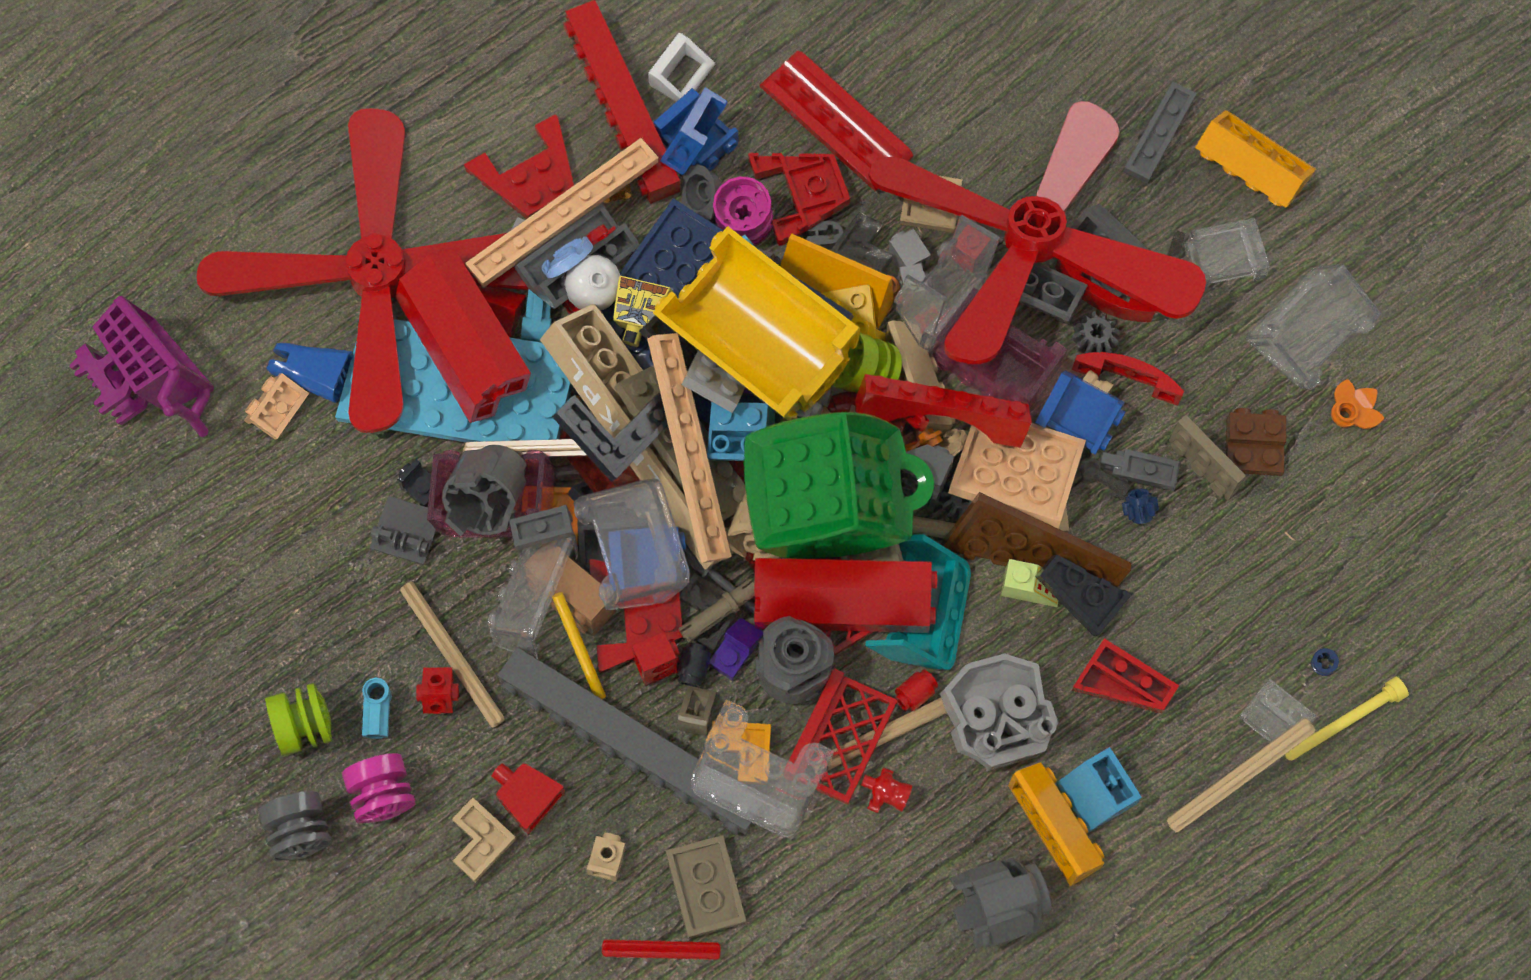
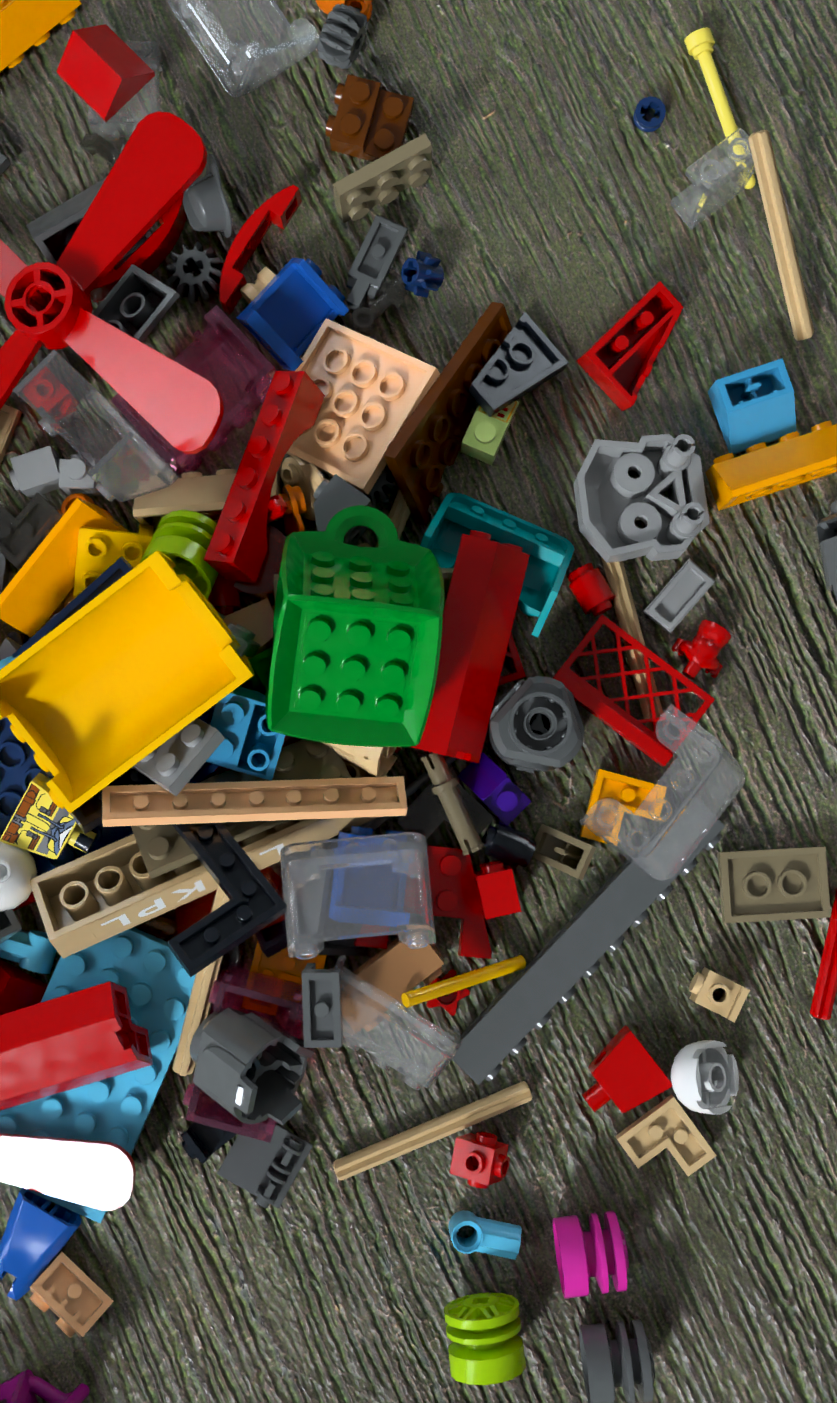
camera: 75 degrees left, 15 degrees up
(537, 855) = (705, 1077): none -> white cylinder
(556, 647) = (450, 1001): none -> red plate
(928, 765) = (679, 596): none -> light grey tile
(1149, 328) = (206, 202): none -> dark grey piece
(1234, 232) = (102, 69): none -> red slope
(1315, 405) = (342, 36): none -> dark grey gear

